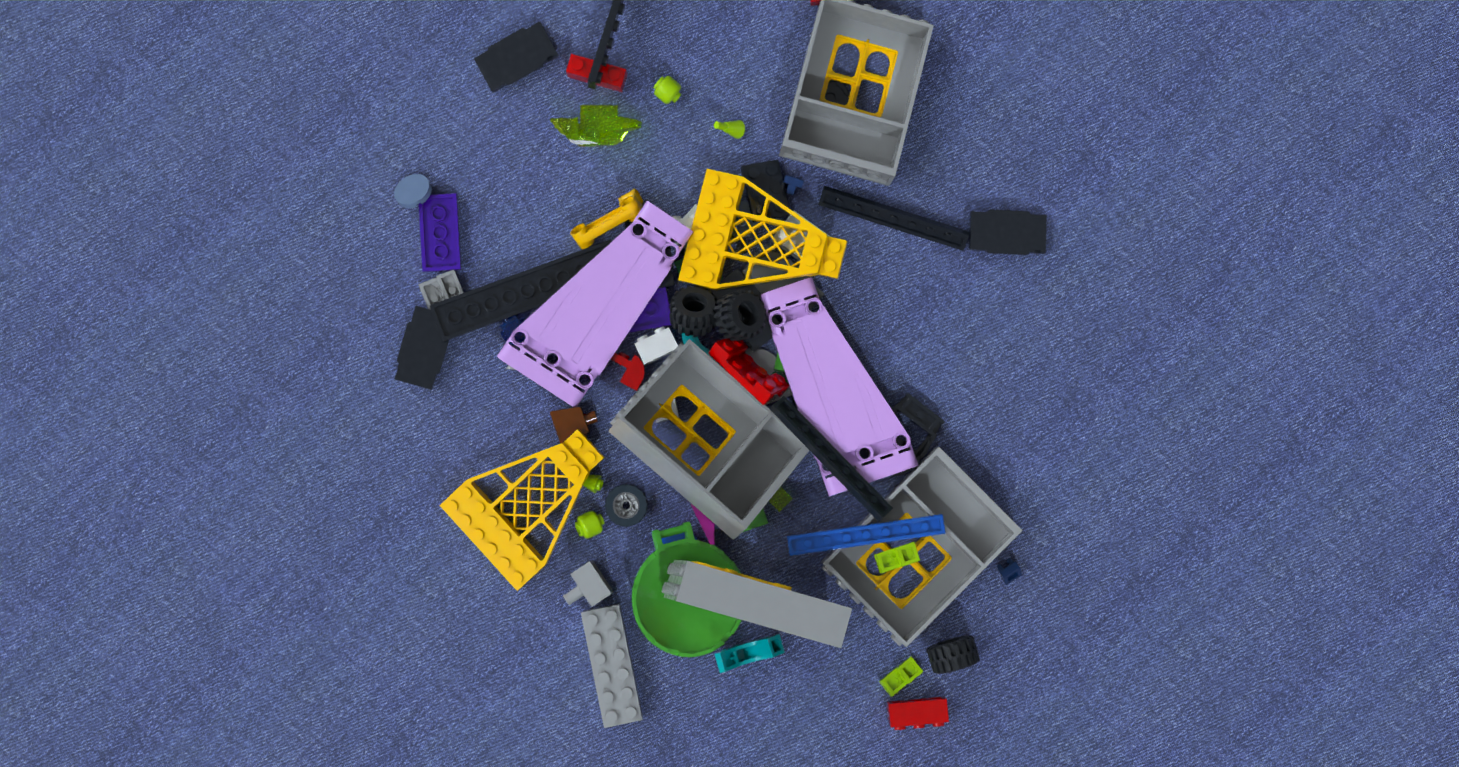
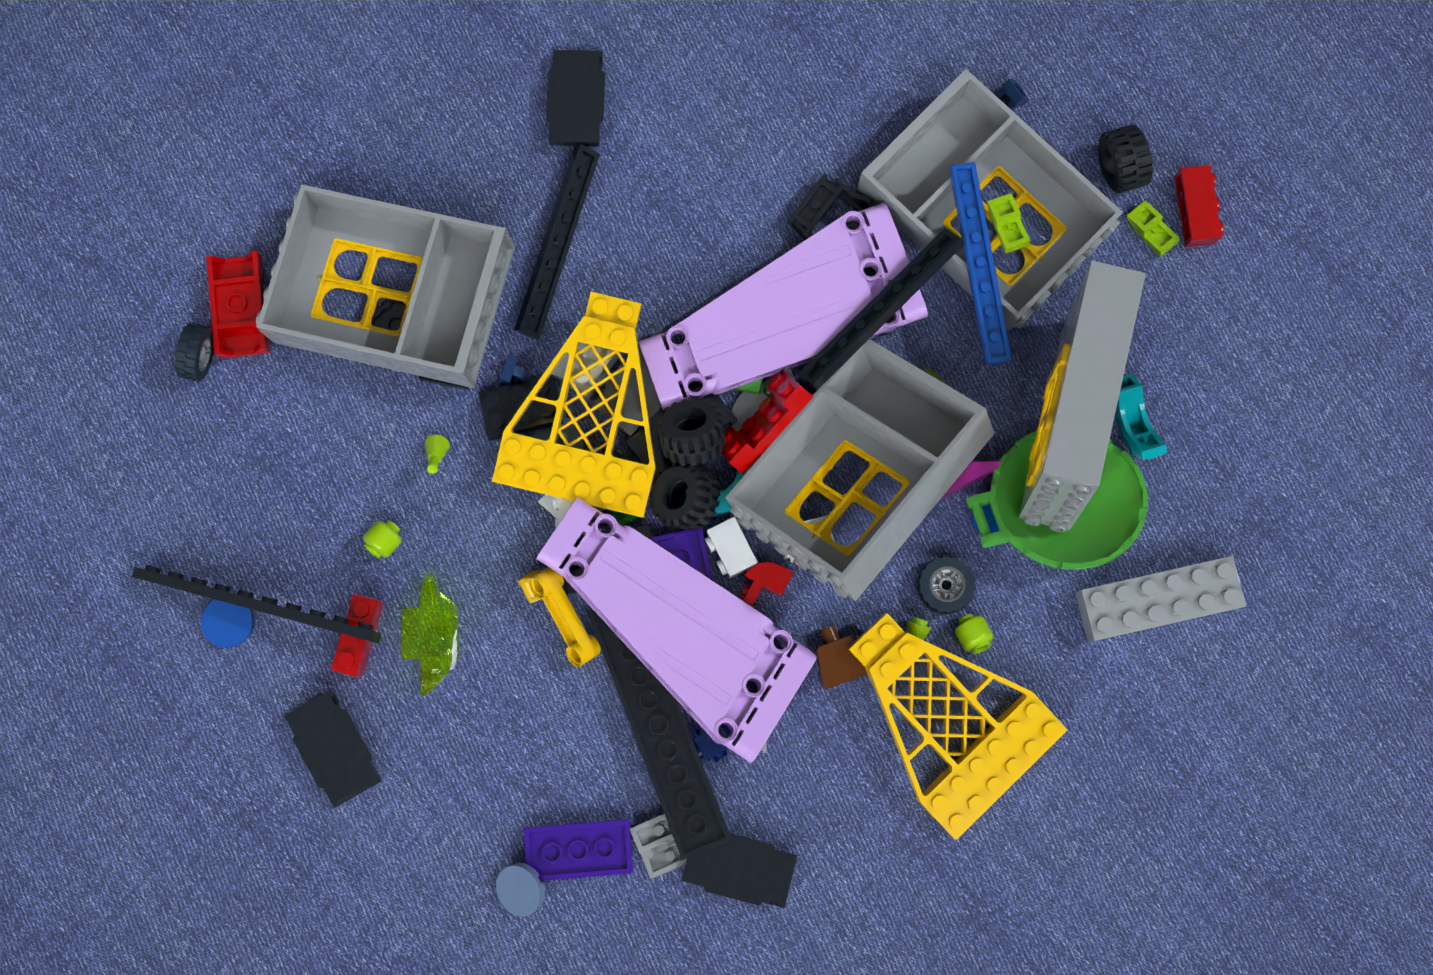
camera: 90 degrees left, 5 degrees down
(589, 584) = (1056, 630): light grey brick -> none

